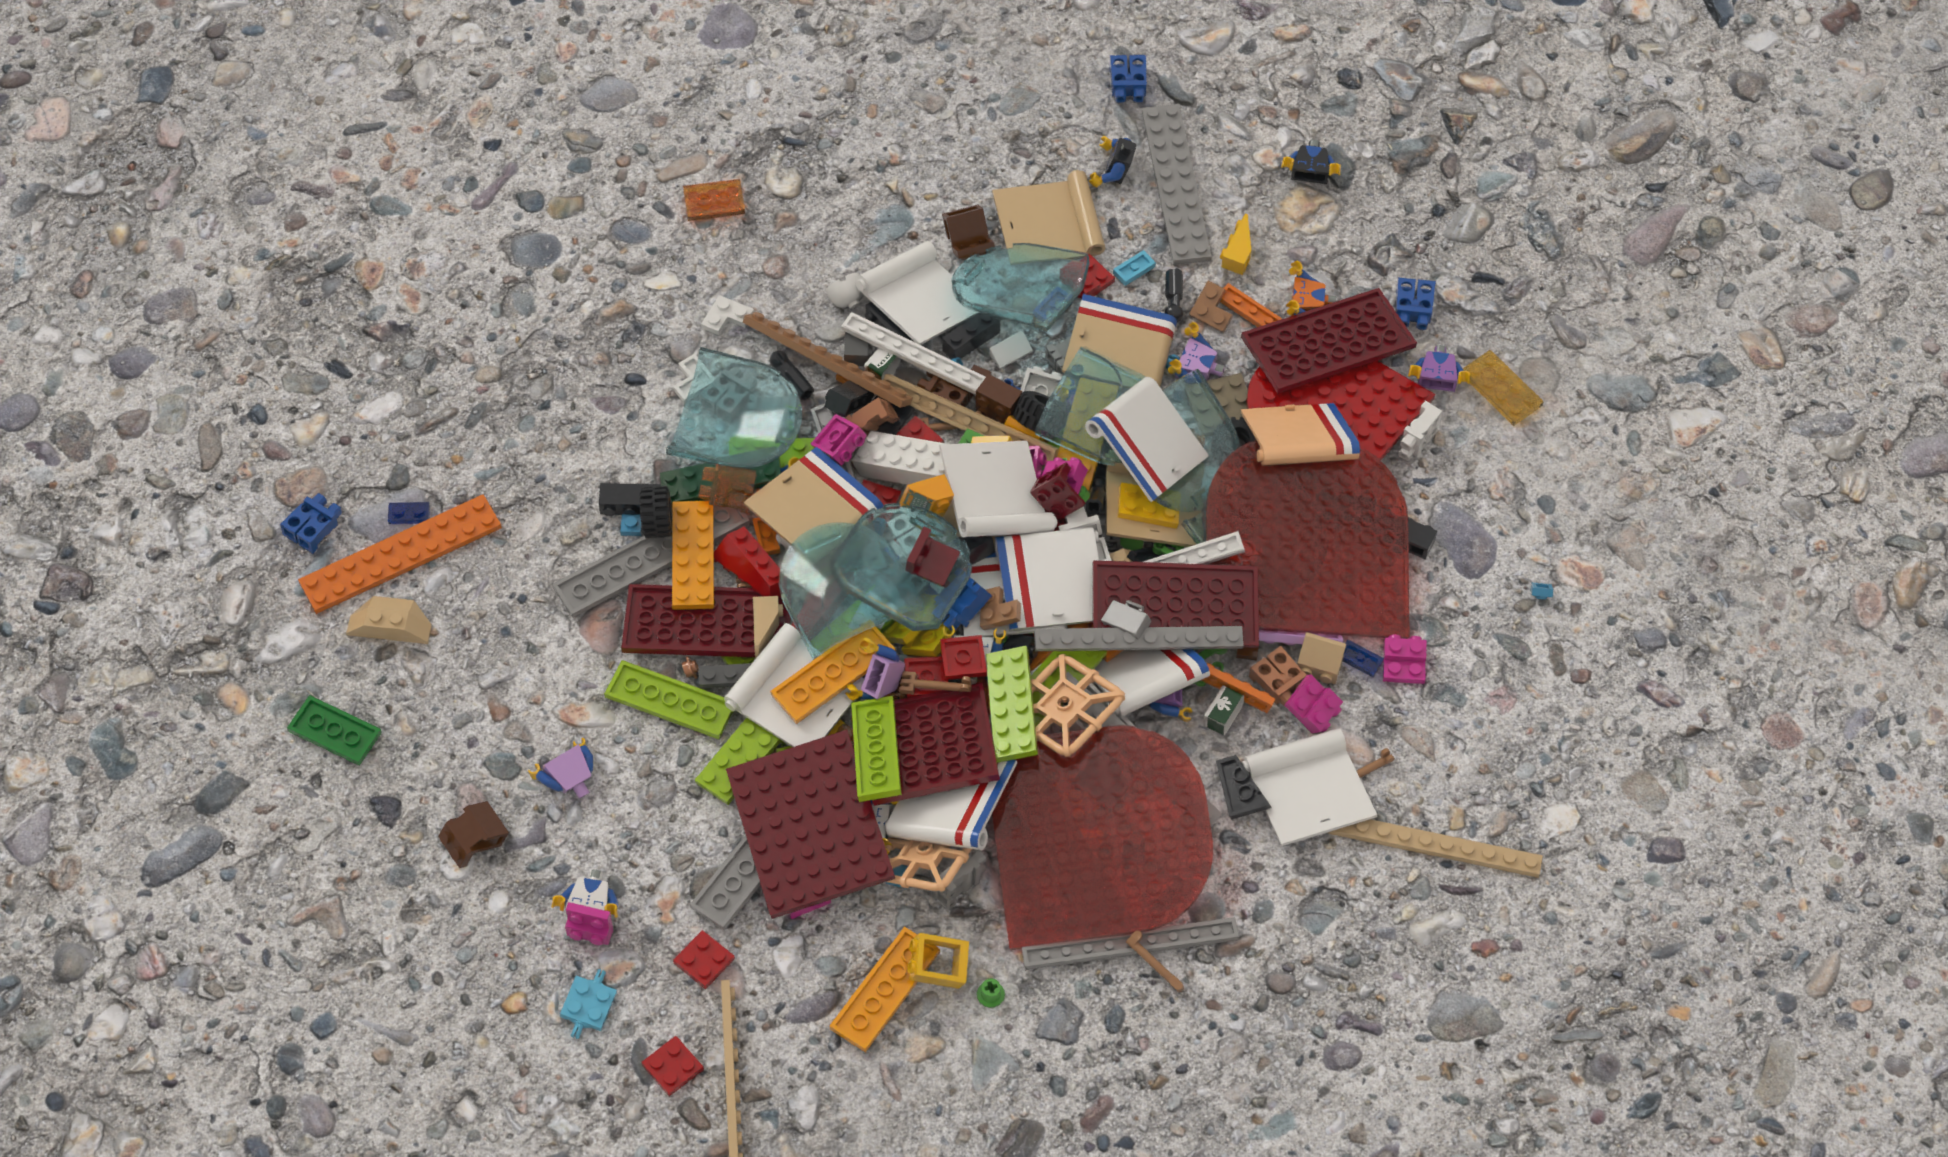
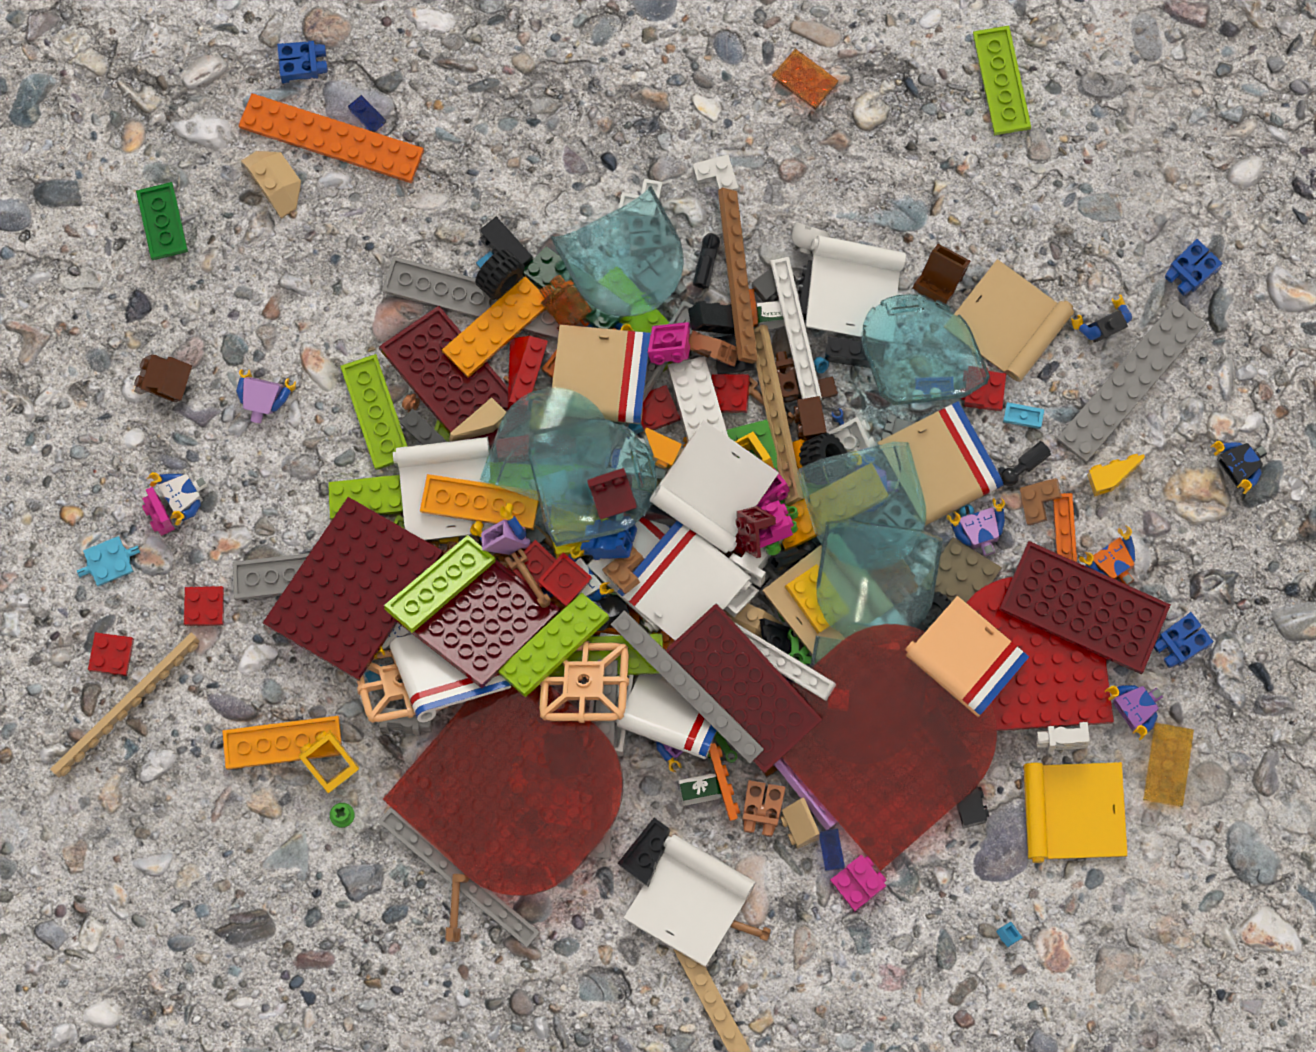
camera: 55 degrees right, 15 degrees up
(853, 81) = (1001, 80): none -> lime plate
(1010, 350) = (866, 390): white slope -> none
(1127, 618) = (693, 665): light grey piece -> none
(1148, 437) = (856, 553): white door -> none
(1314, 705) = (759, 849): dark pink plate -> none
(1482, 473) = (1074, 811): none -> yellow door

